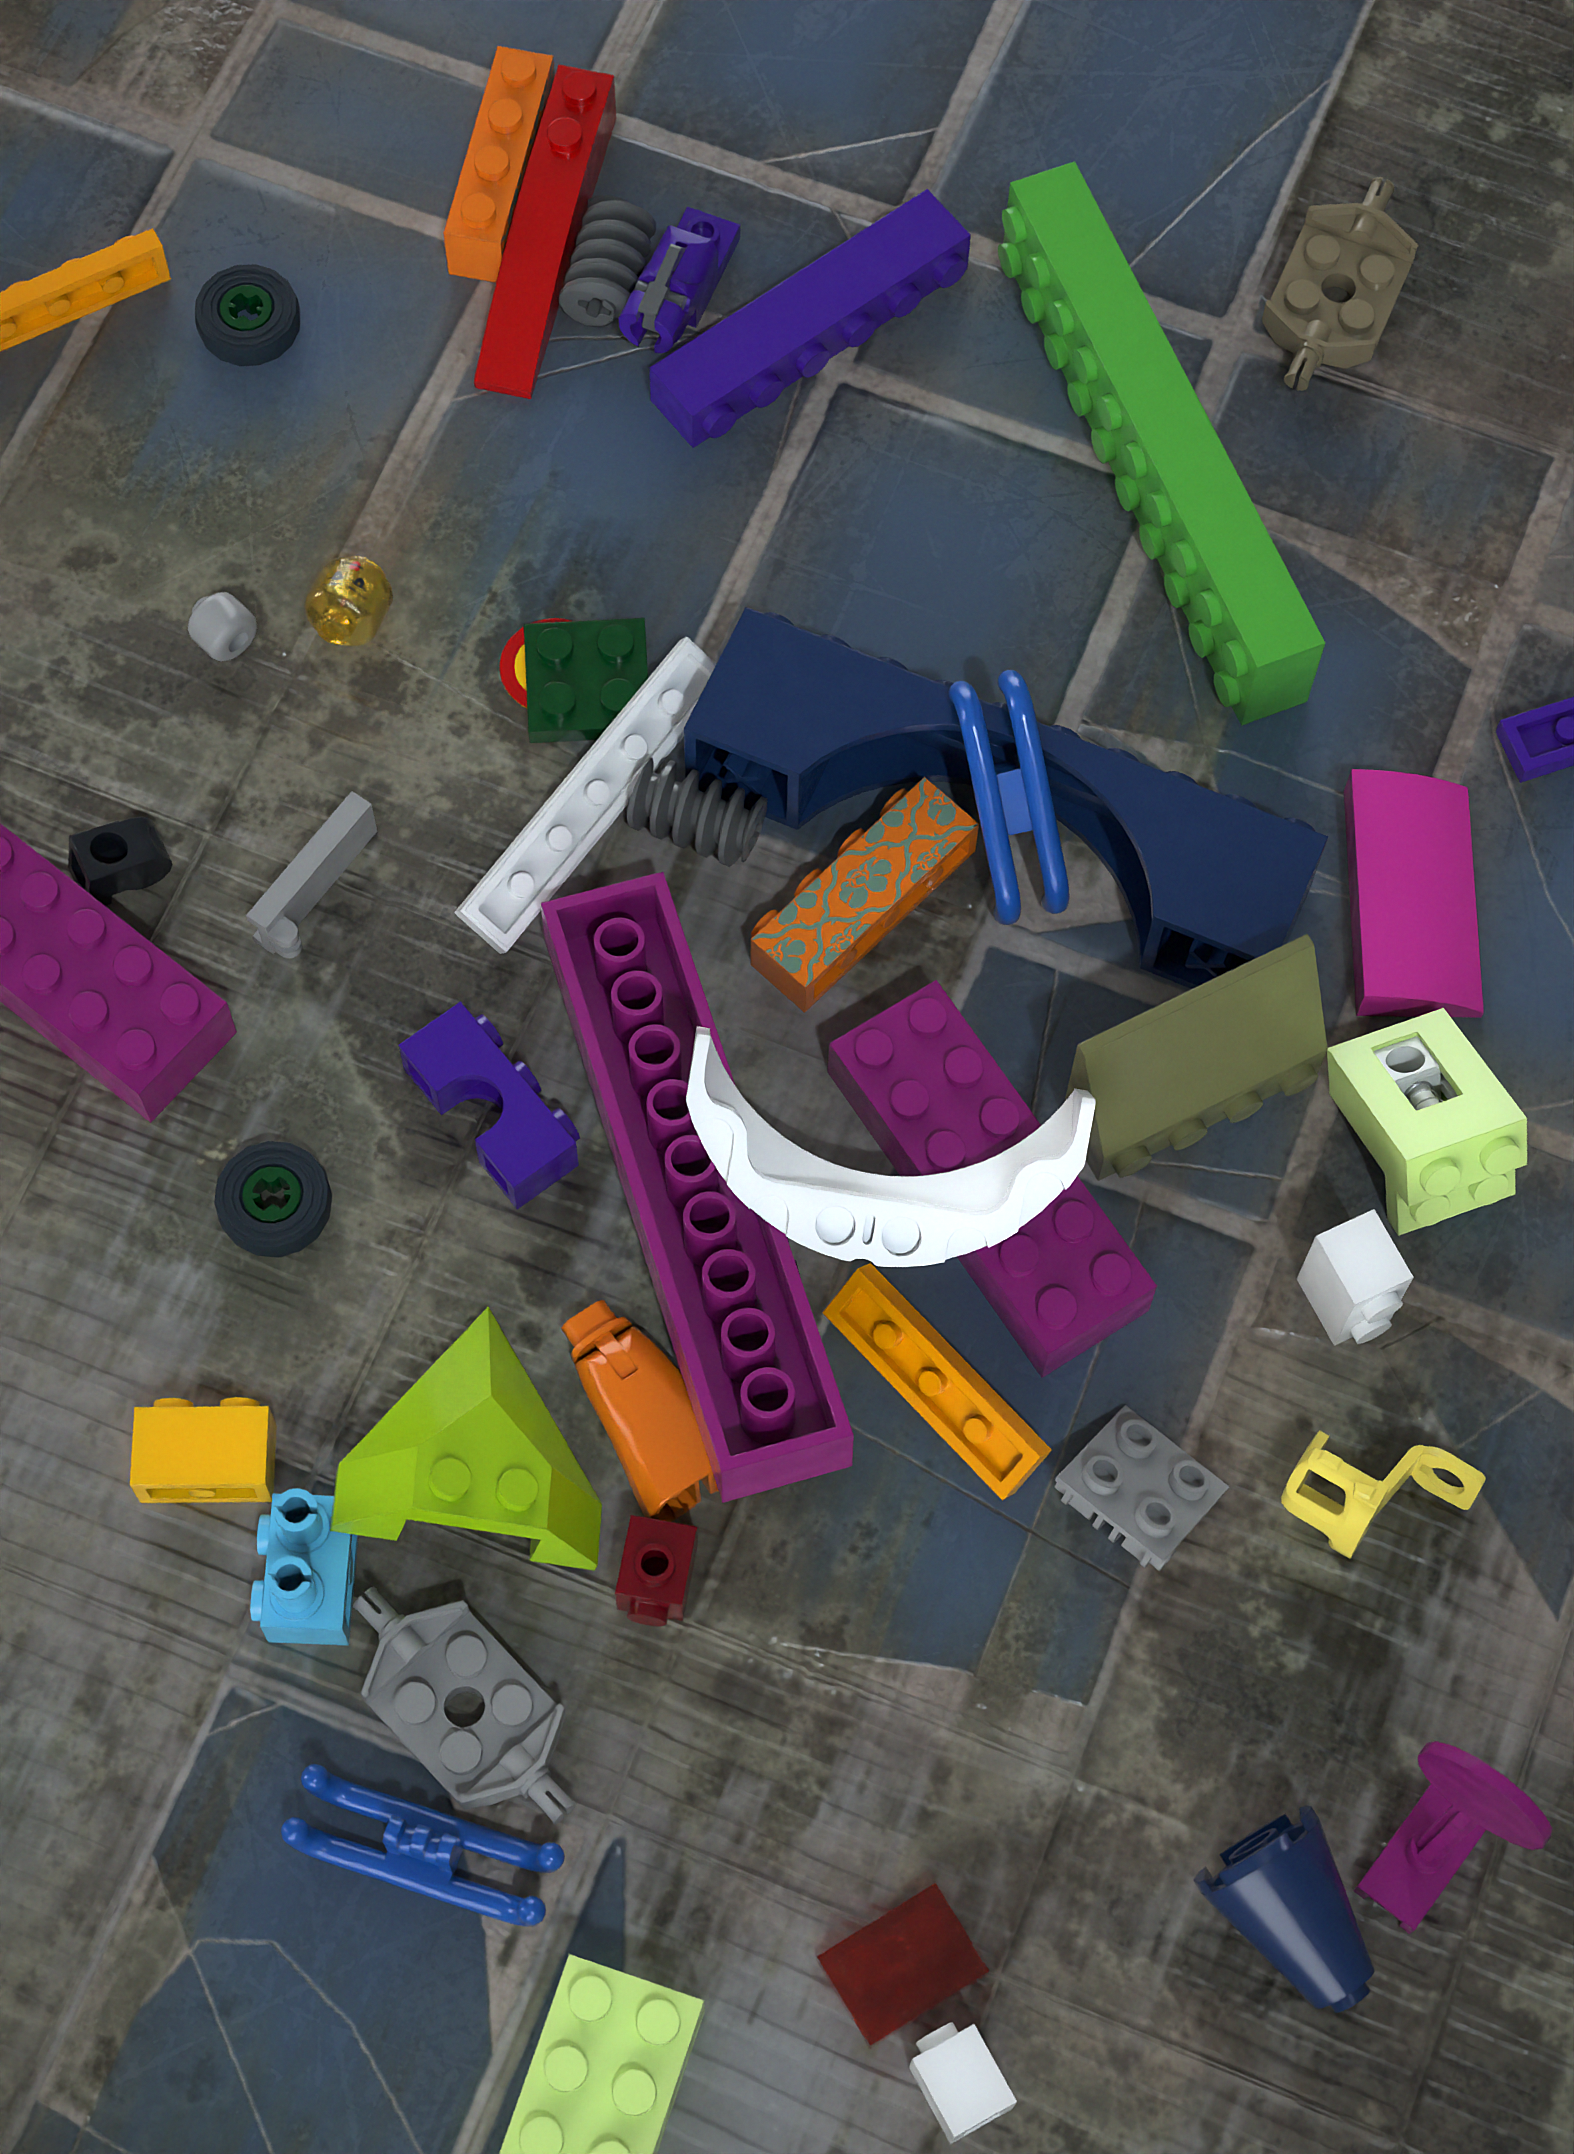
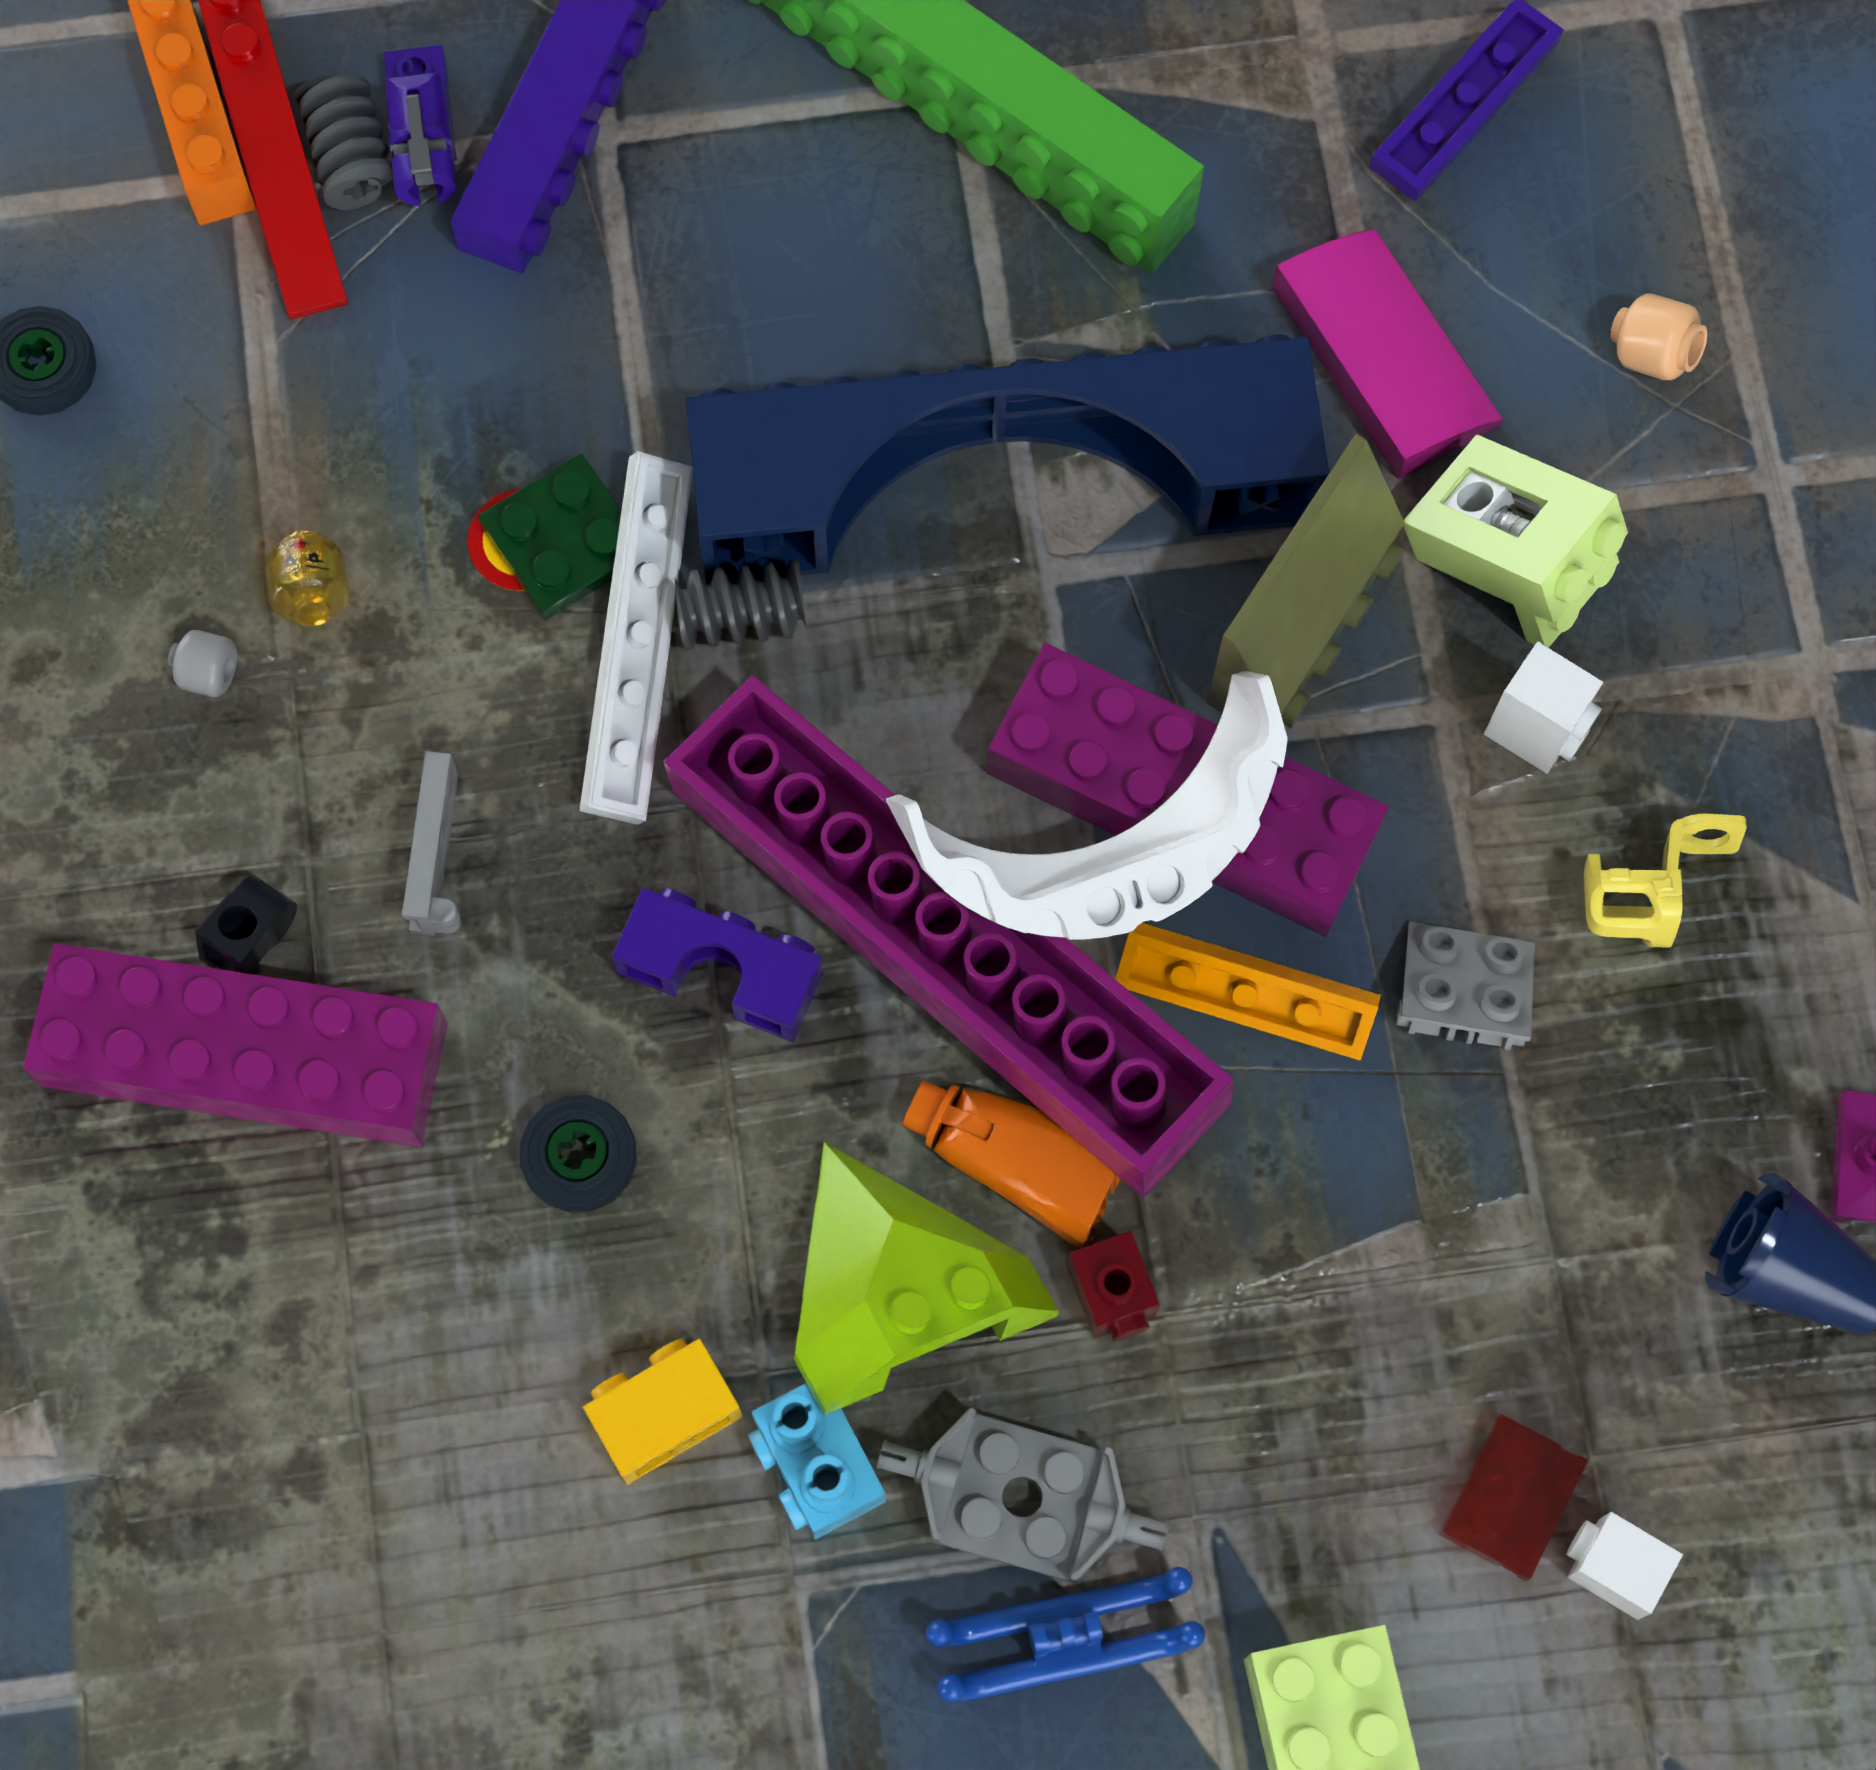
camera: 30 degrees left, 5 degrees up
(862, 893) = (926, 598): orange brick -> none
(1012, 797) = (1016, 444): blue piece -> none

